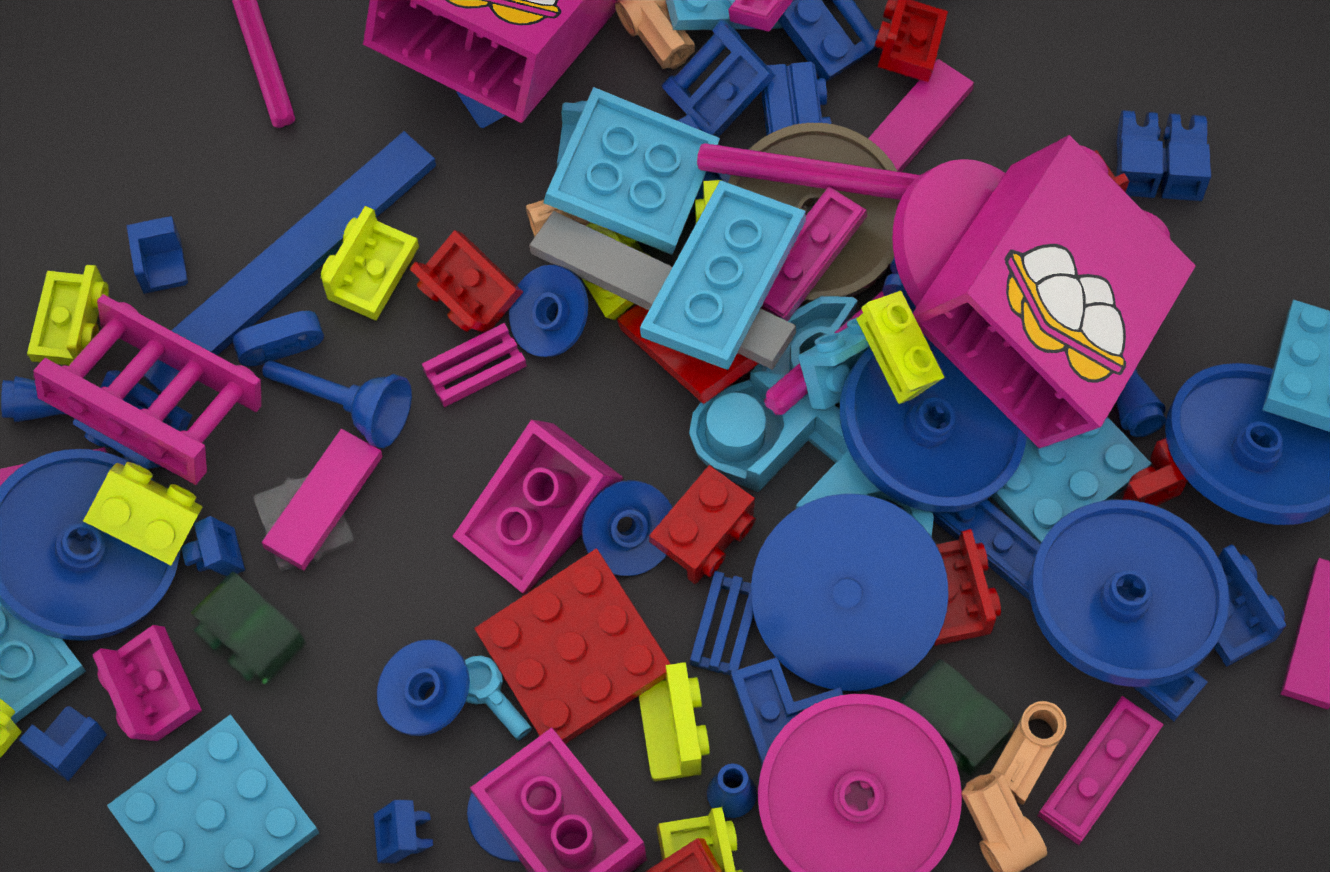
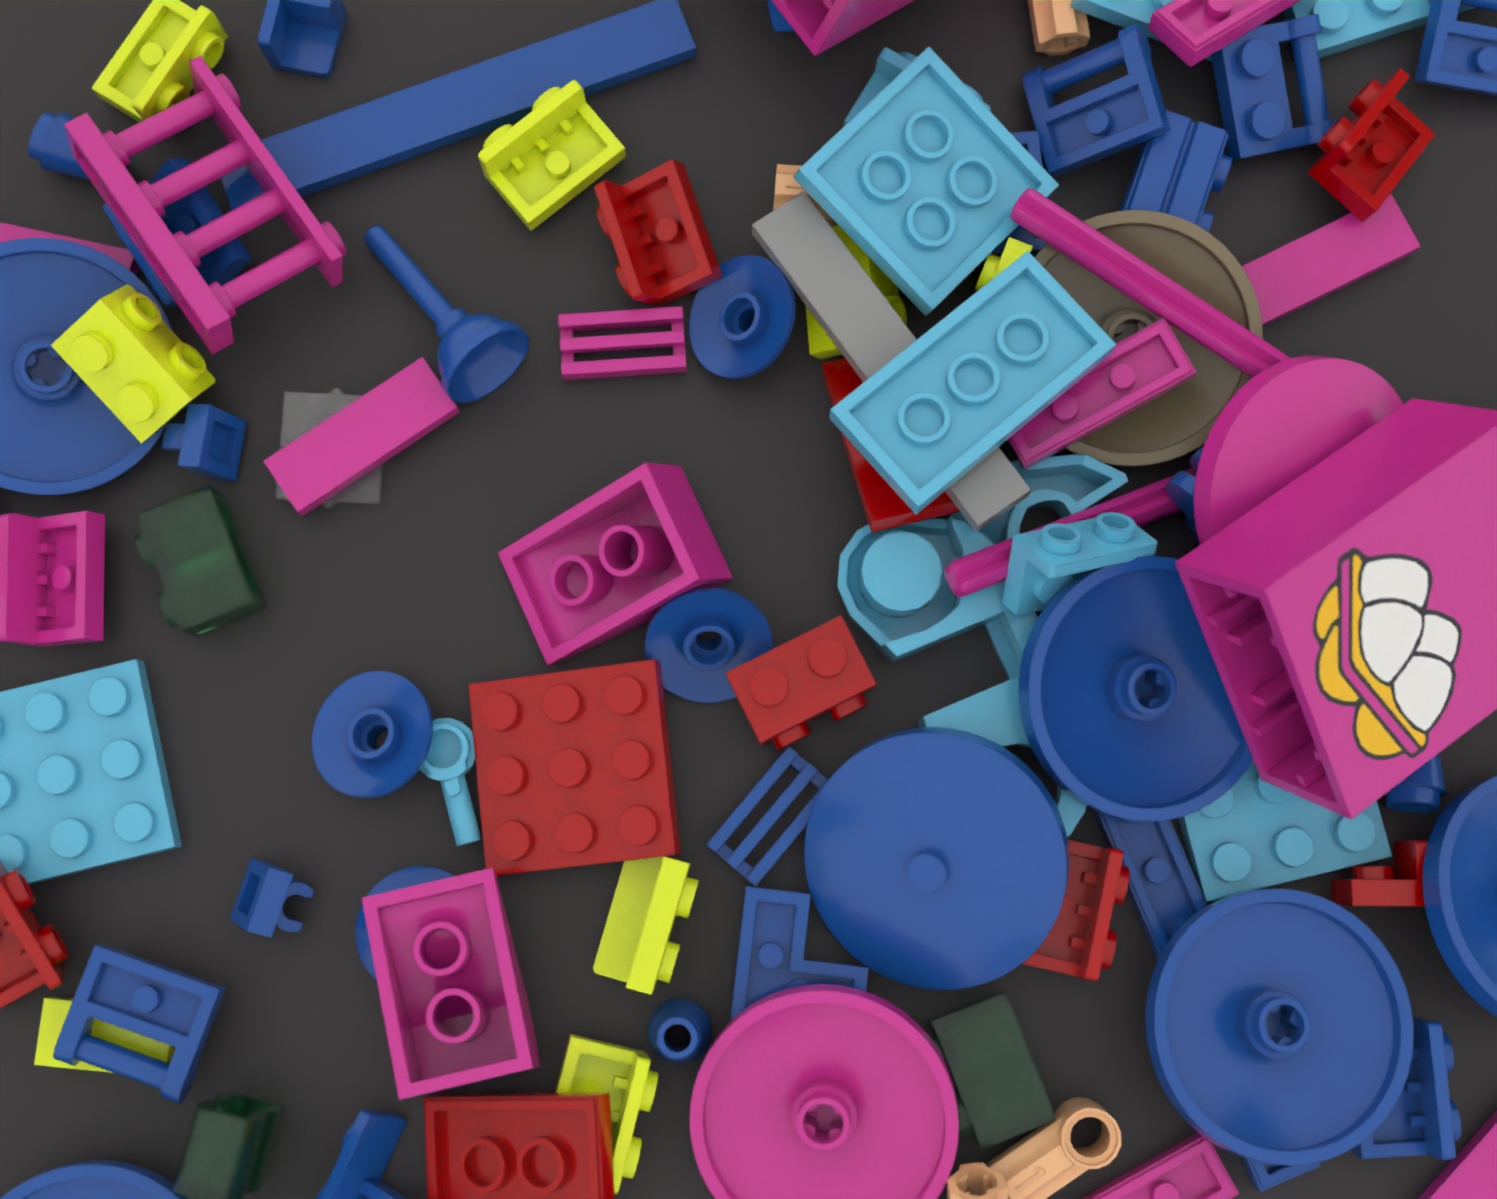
camera: 20 degrees right, 15 degrees up
(278, 338) = (400, 203): blue beam -> none
(899, 346) = (1146, 594): neon yellow bracket -> none

